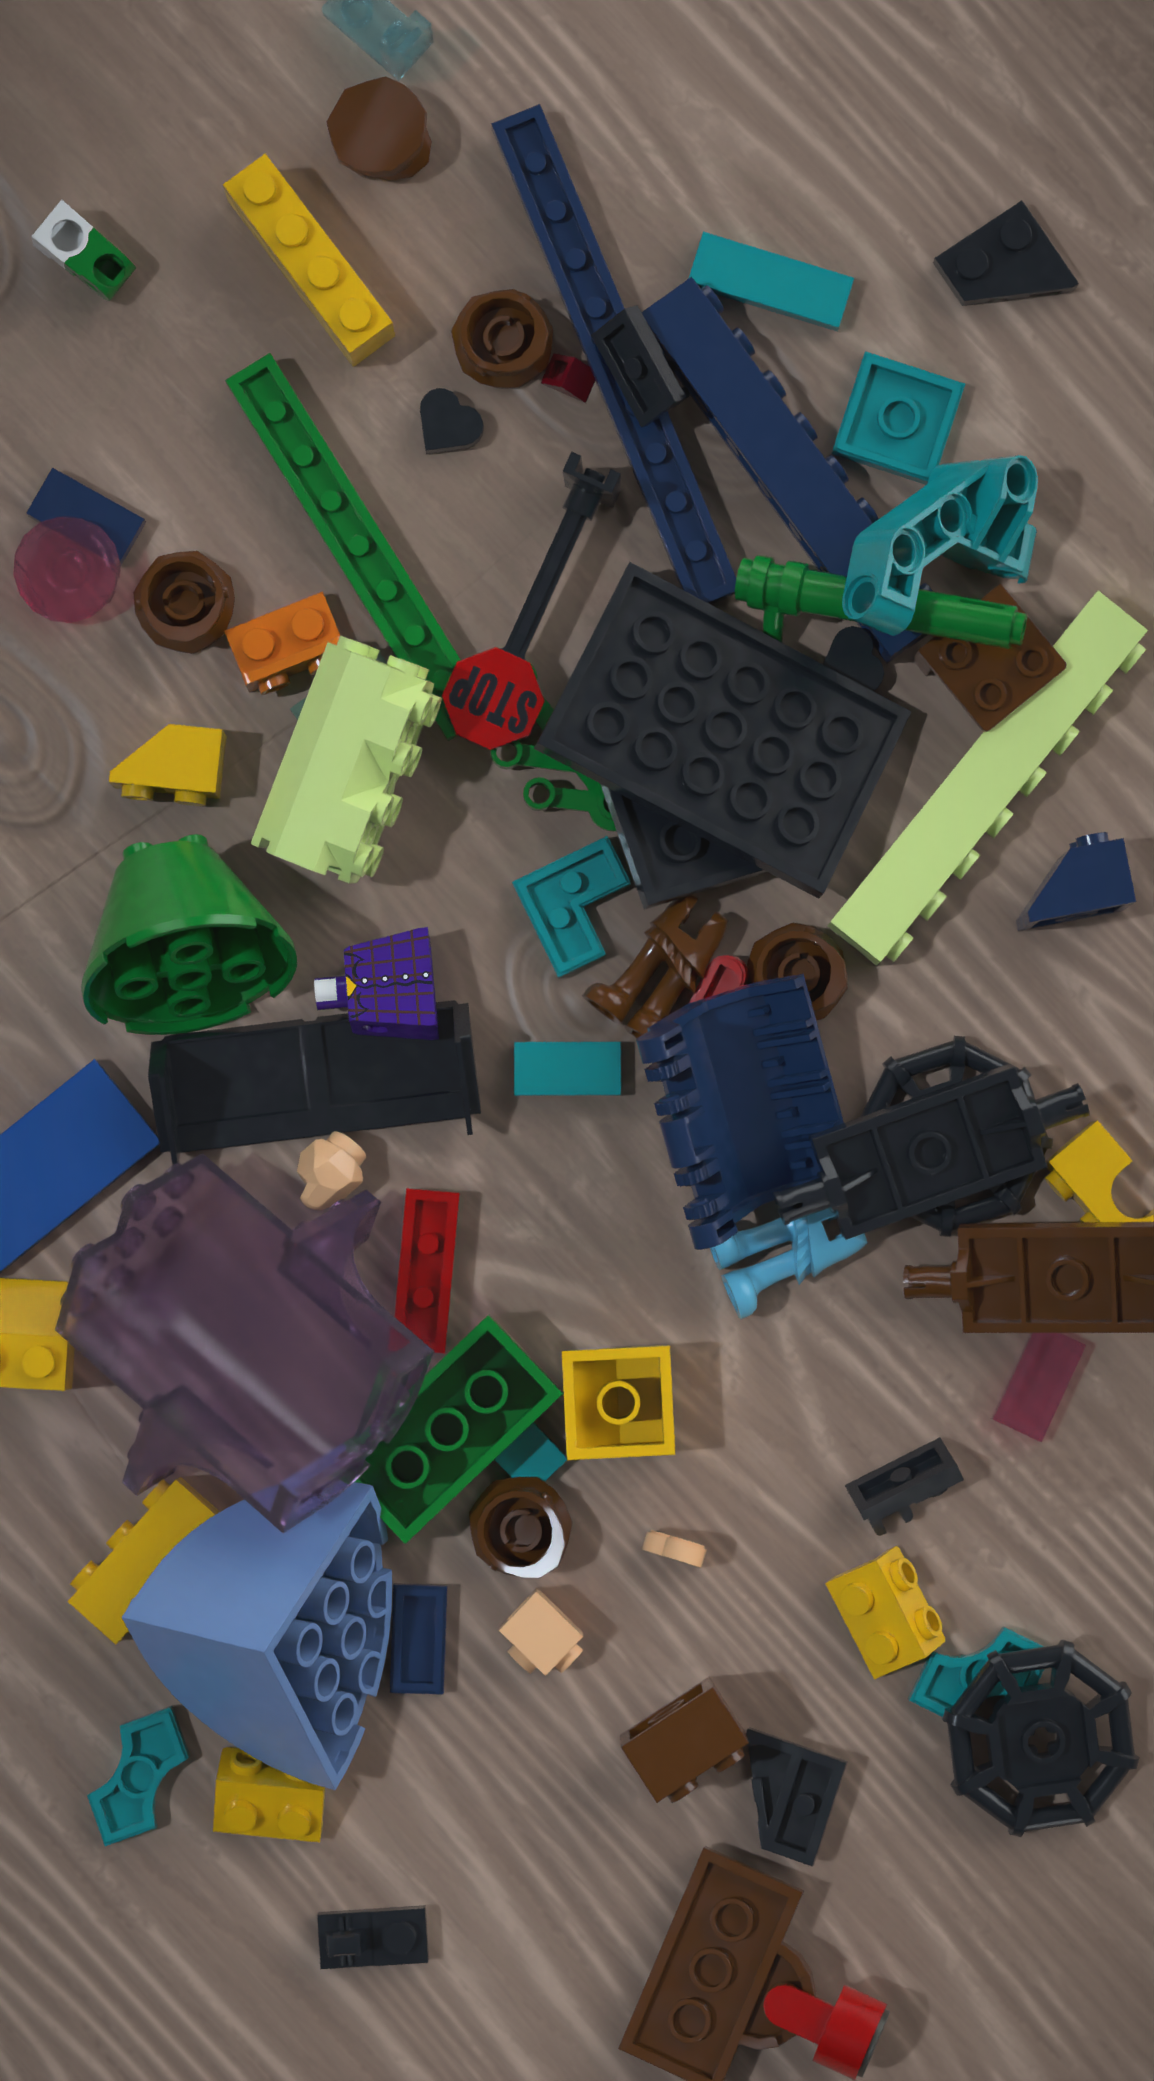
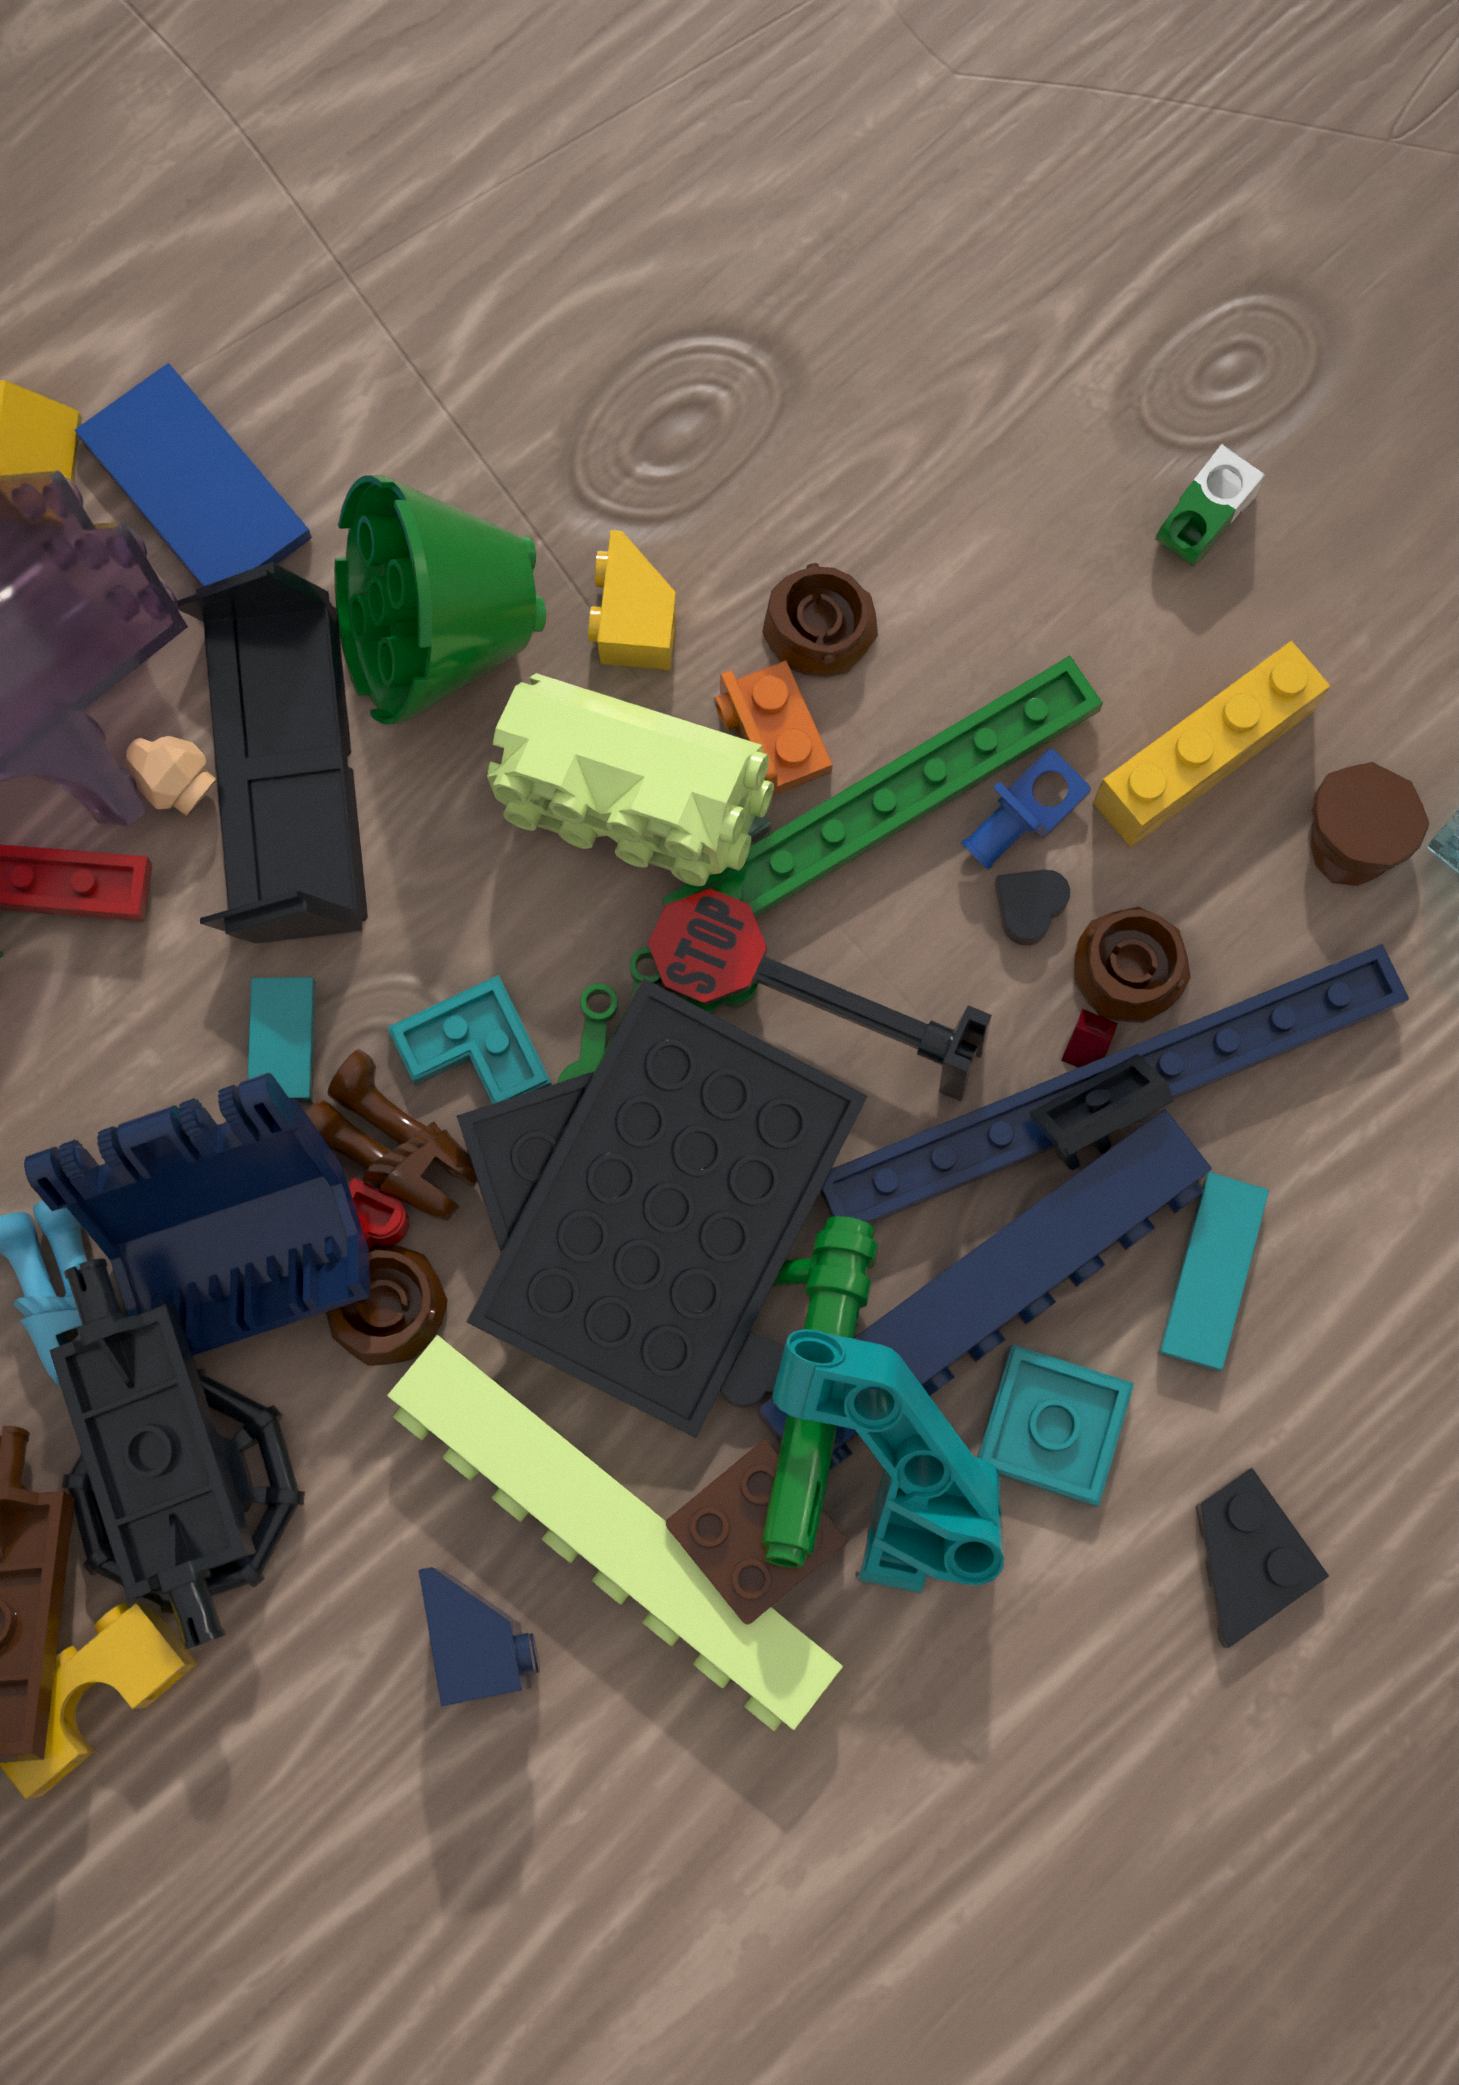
camera: 90 degrees right, 10 degrees down
(66, 569) = (852, 494): clear pink tile -> none
(67, 497) = (912, 518): dark blue tile -> none
(367, 426) = (1022, 812): none -> blue bracket
(386, 987) = (377, 833): dark purple torso -> none

